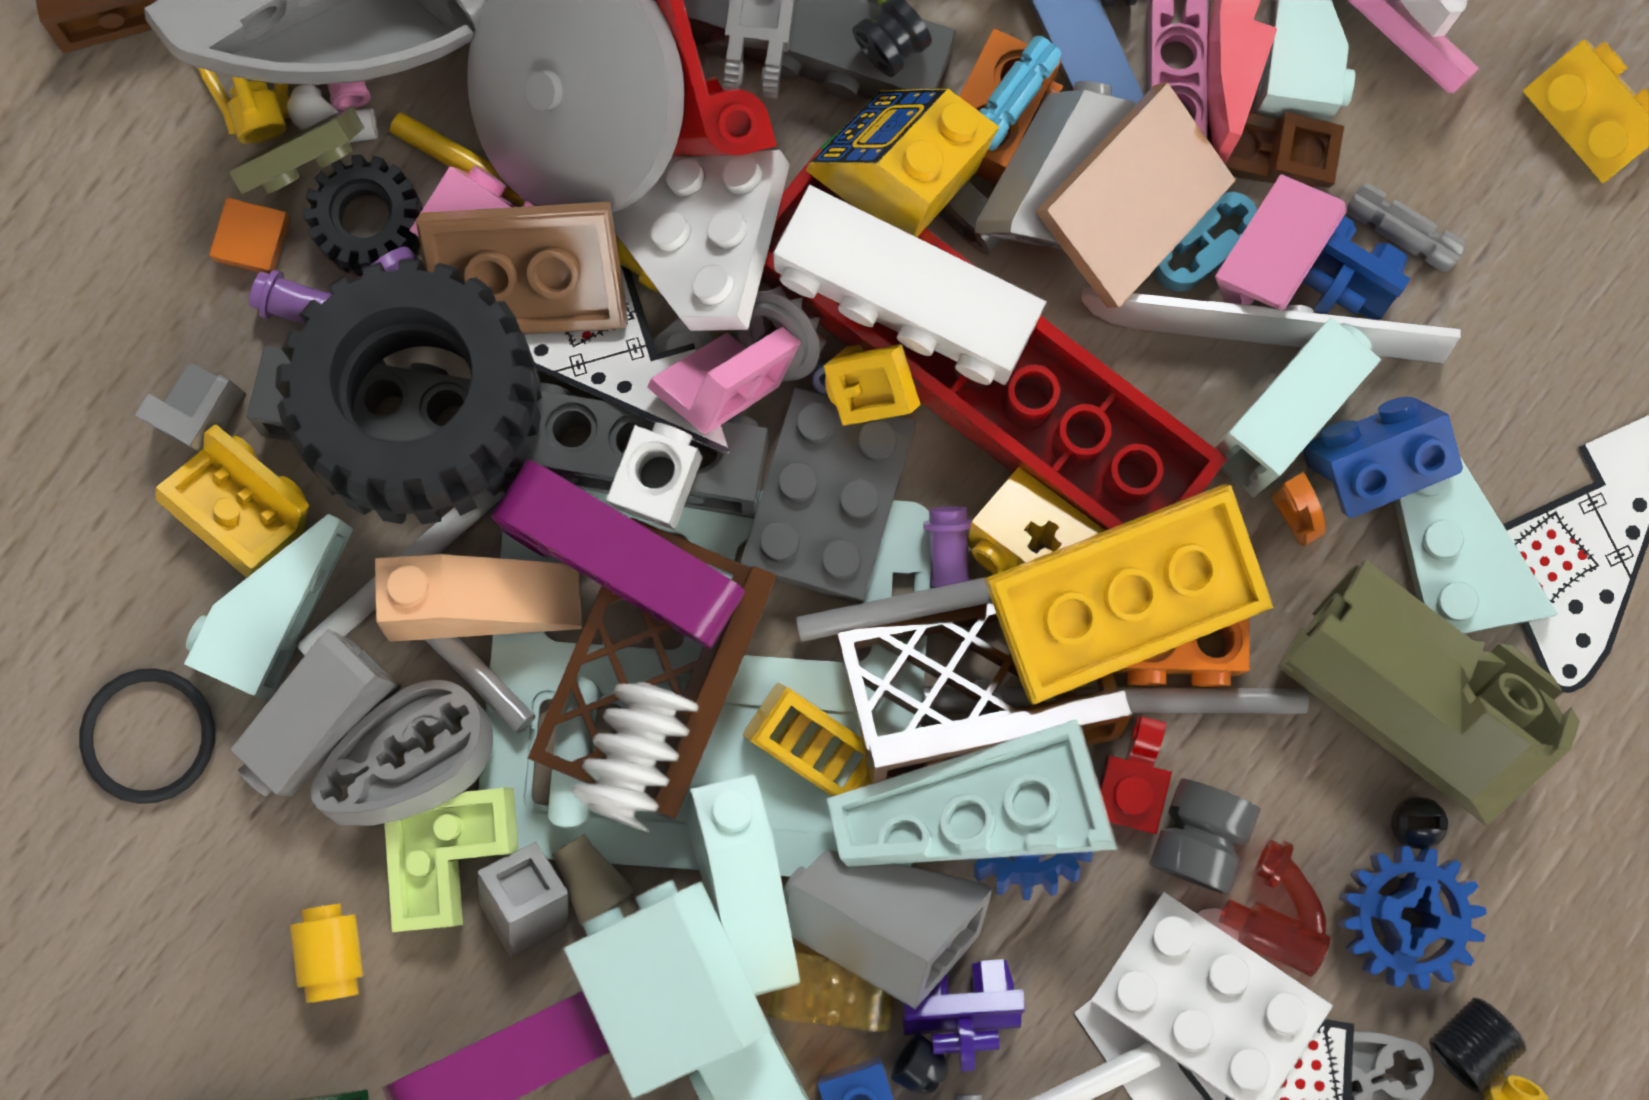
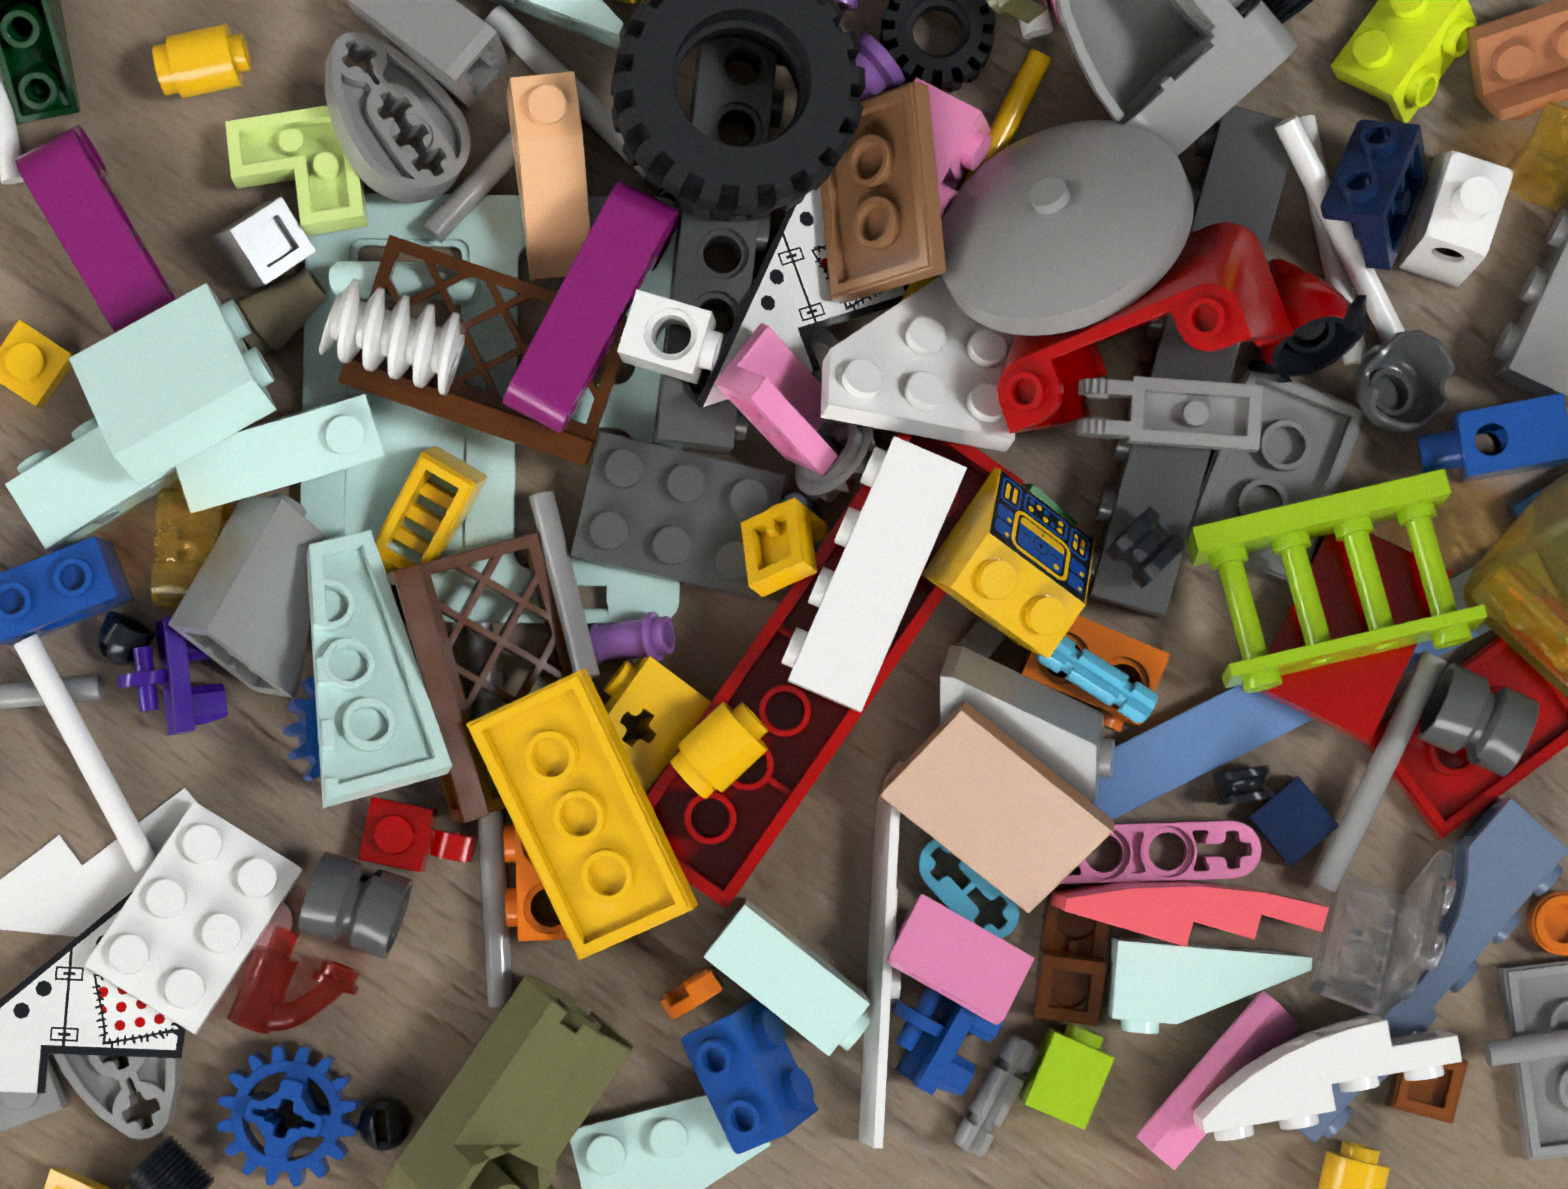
camera: 85 degrees right, 5 degrees up
(1072, 448) = (720, 749): none -> yellow brick
(1391, 155) = (1068, 1075): none -> lime brick

